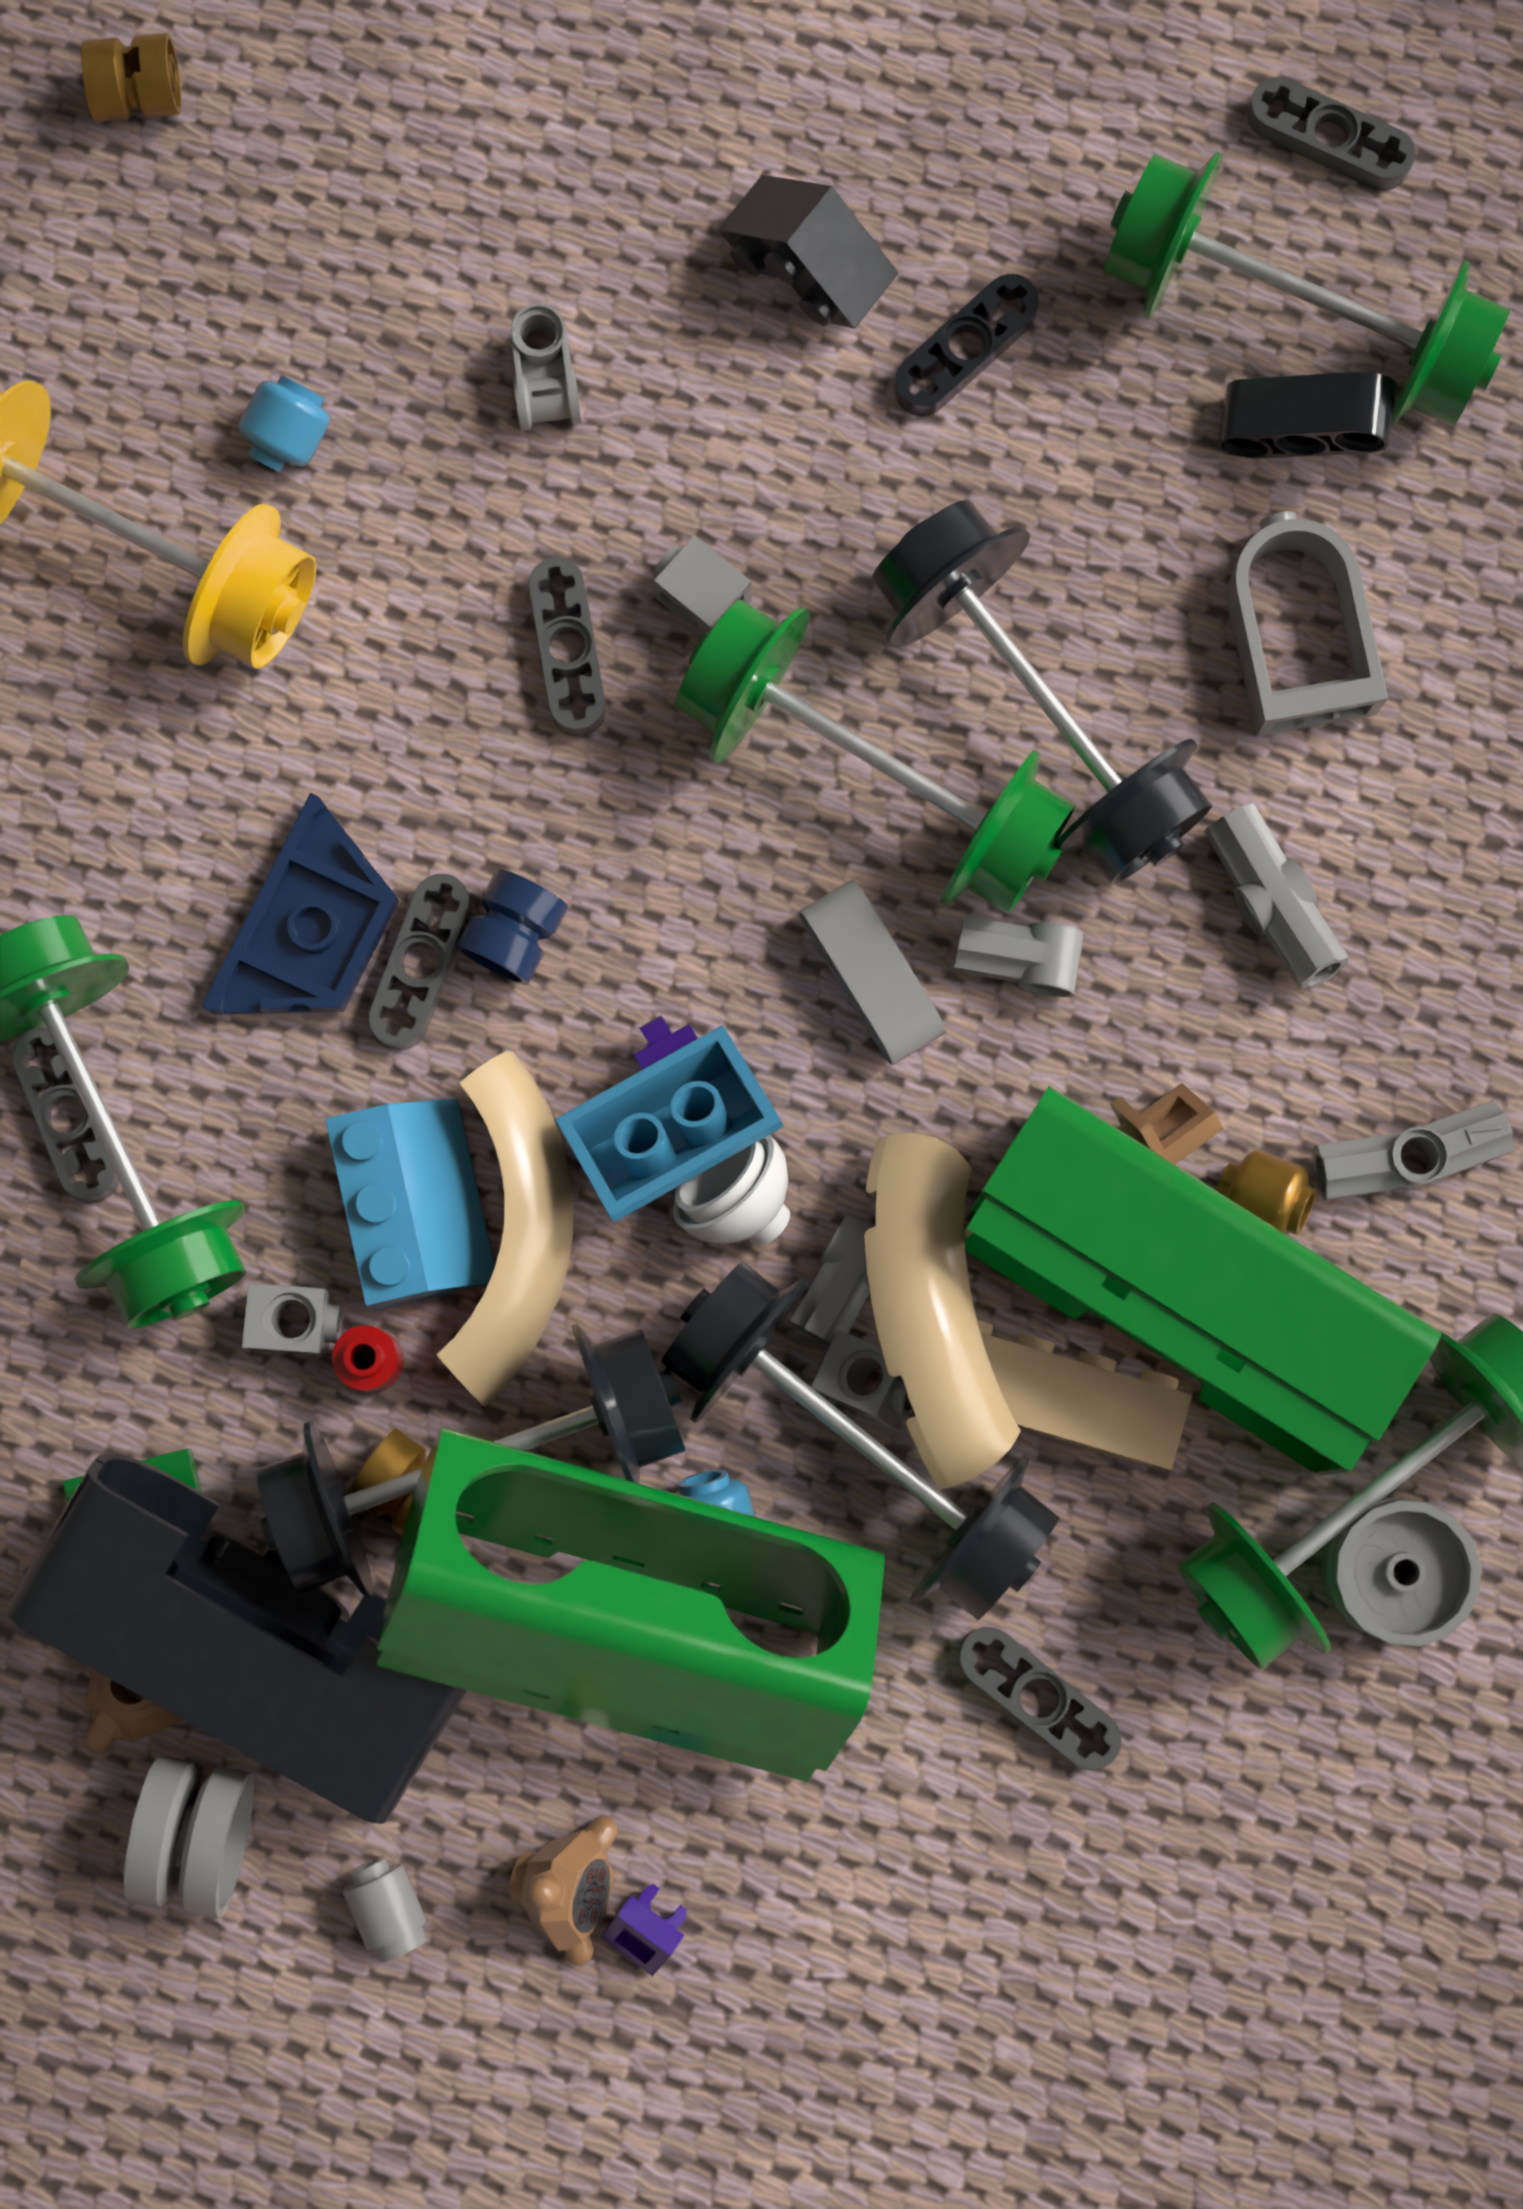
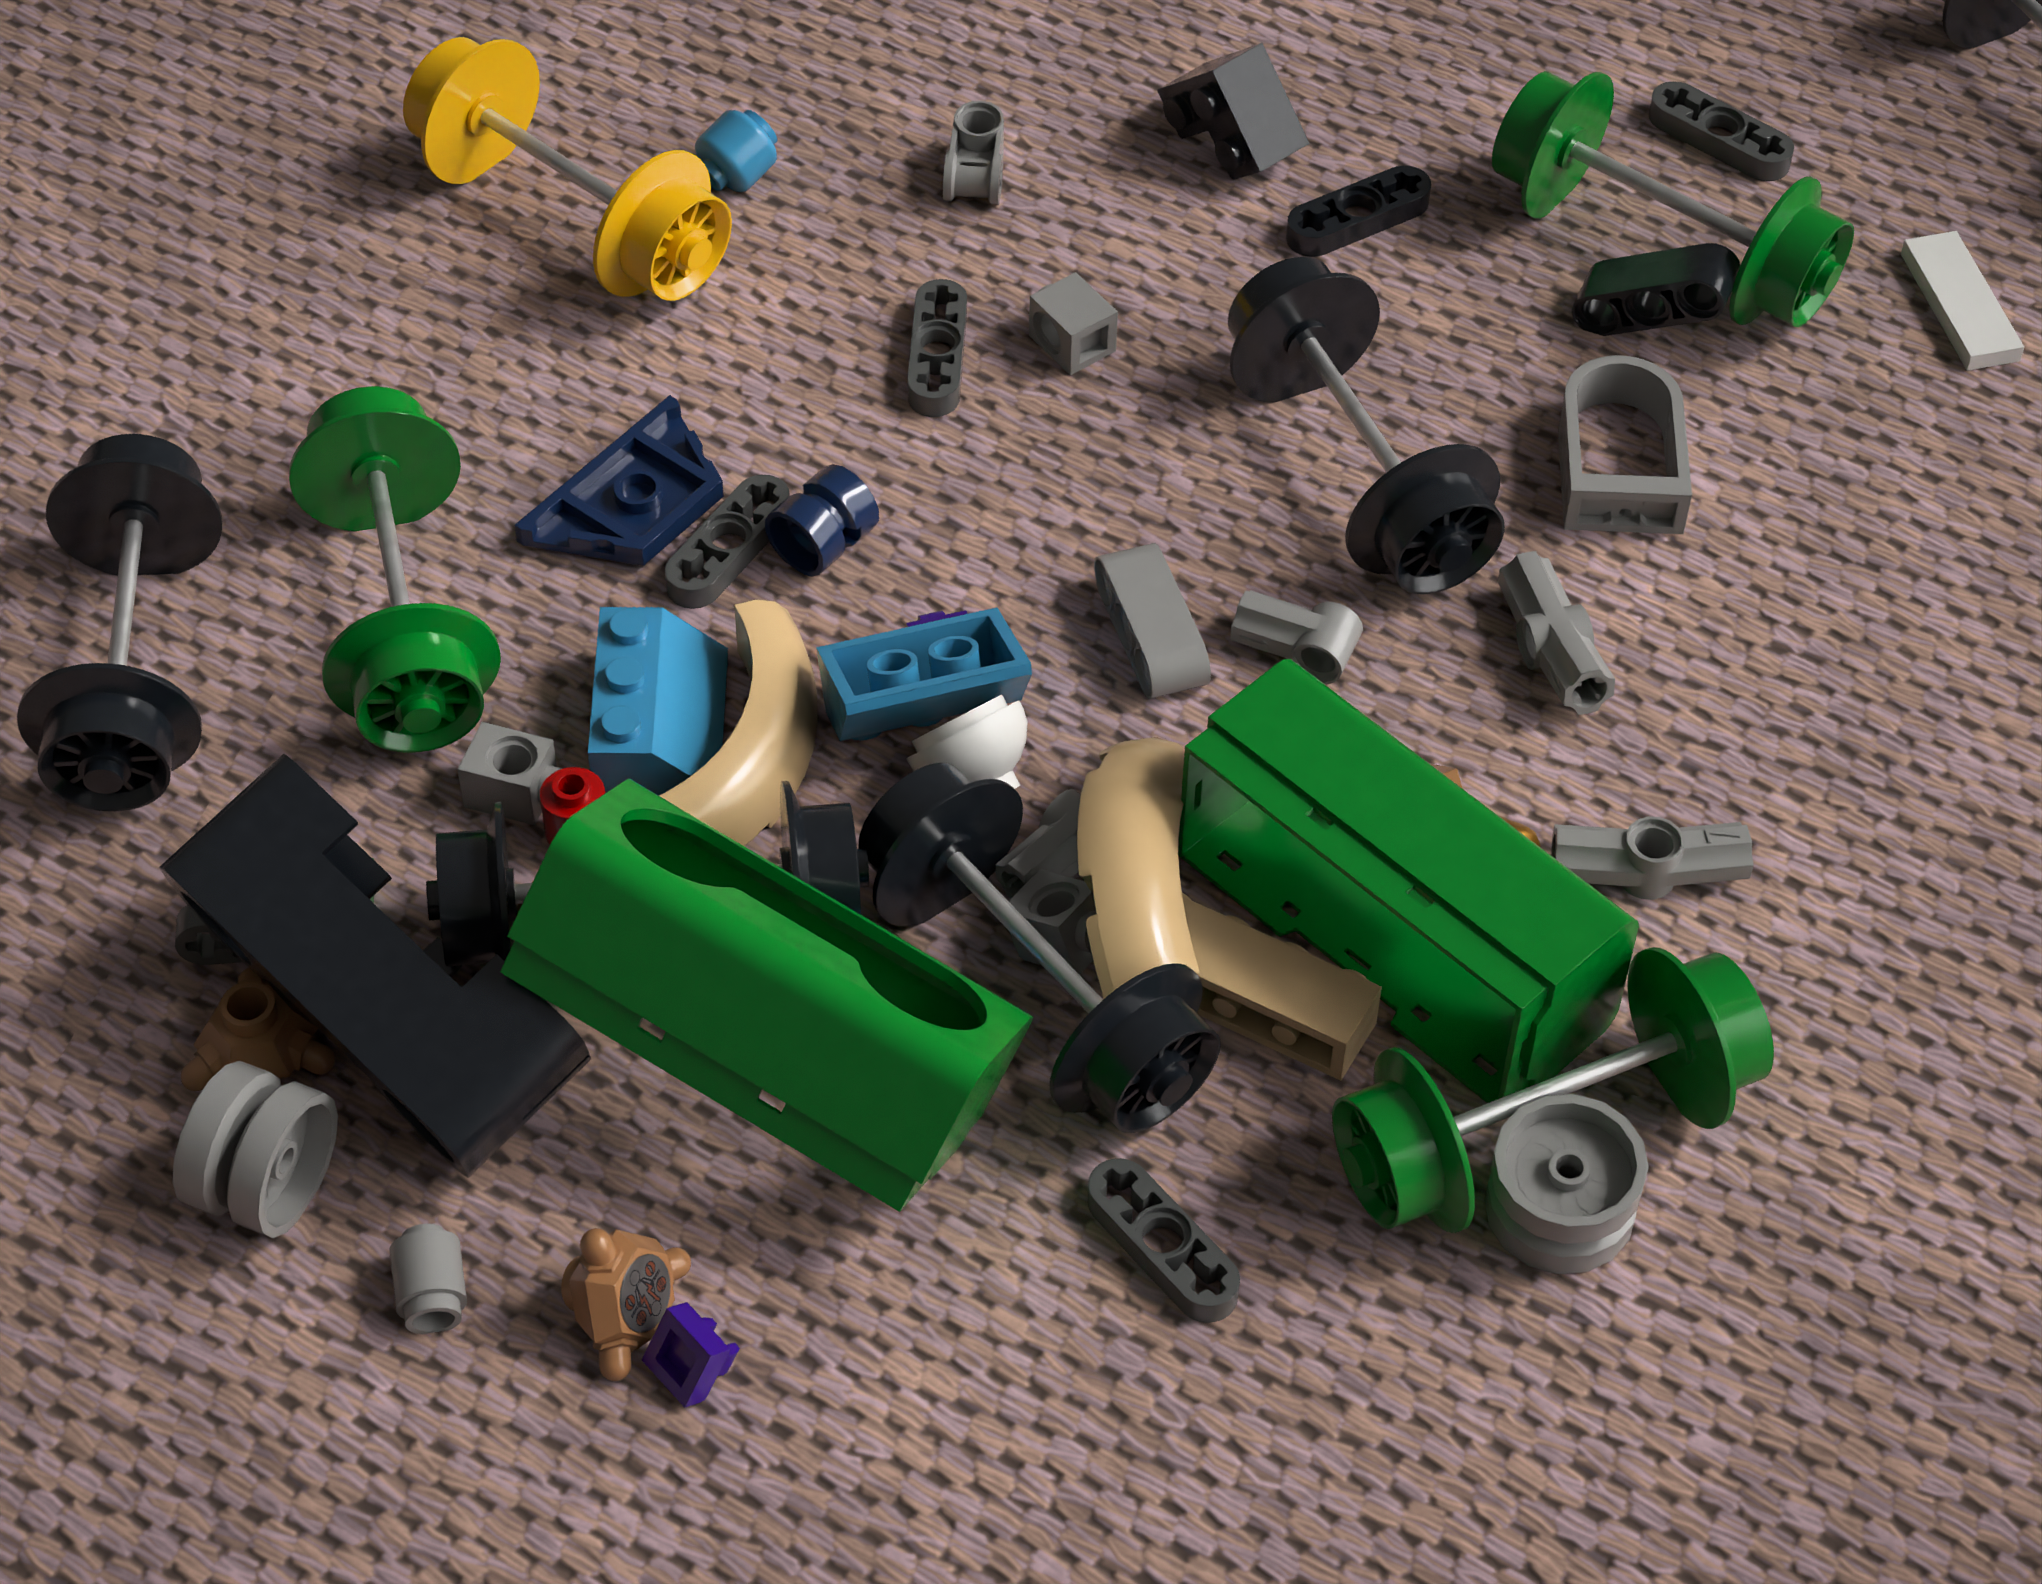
camera: 10 degrees right, 30 degrees down
(69, 1163) = (346, 573): dark grey beam -> none
(740, 671) = (1093, 365): green piece -> none

